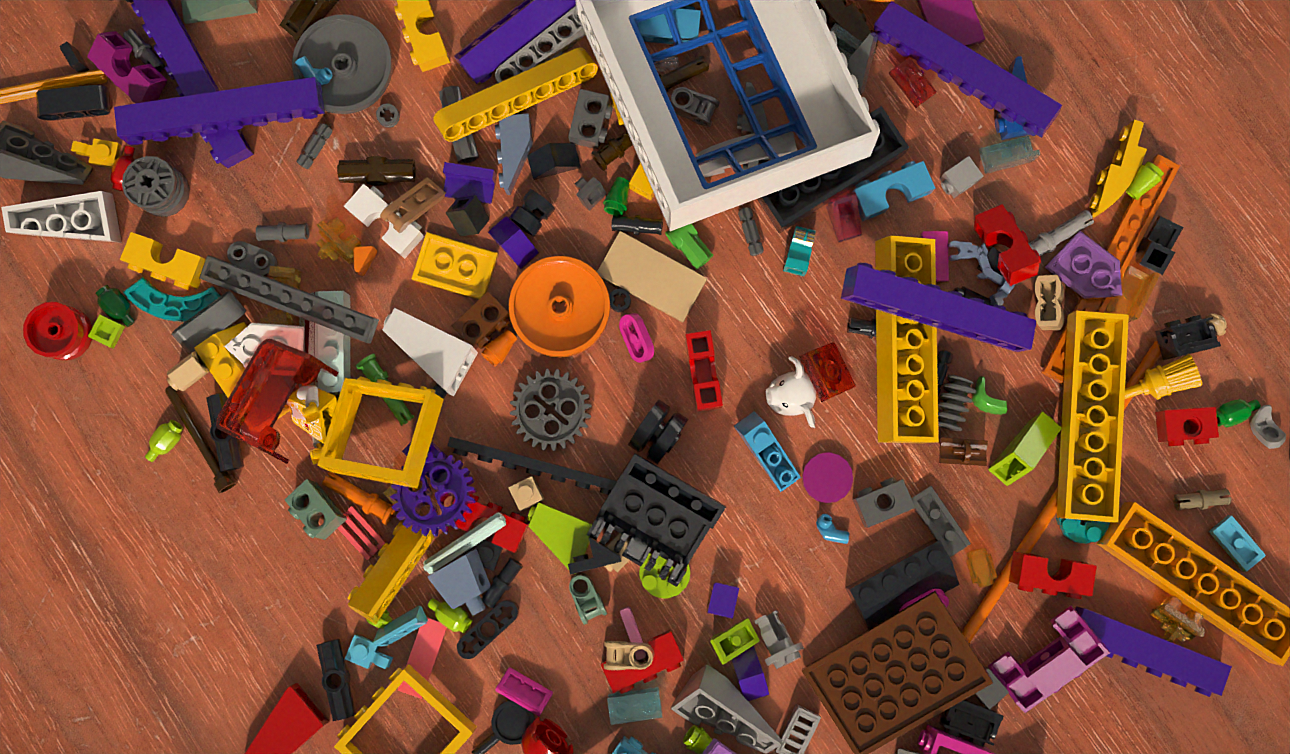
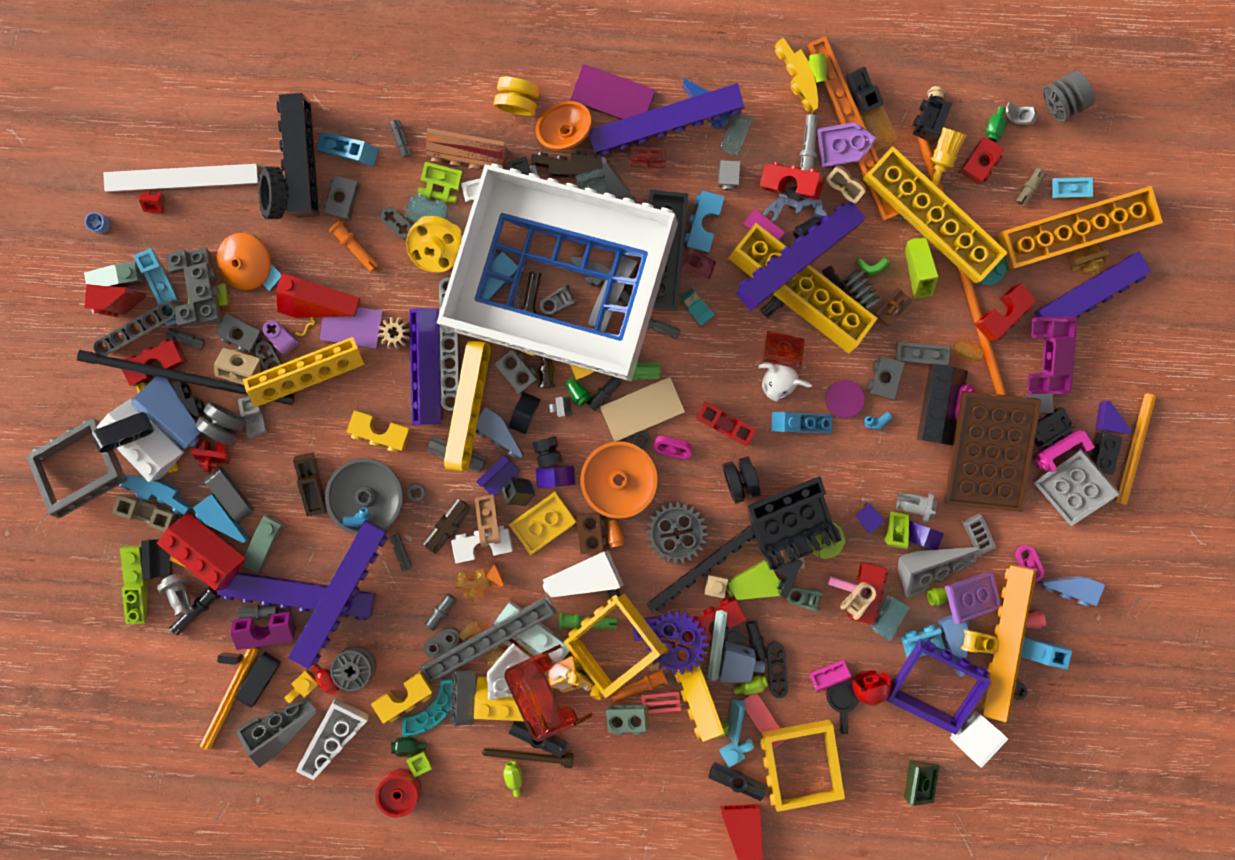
camera: 60 degrees left, 5 degrees up
(187, 372) = (485, 733): tan brick -> none

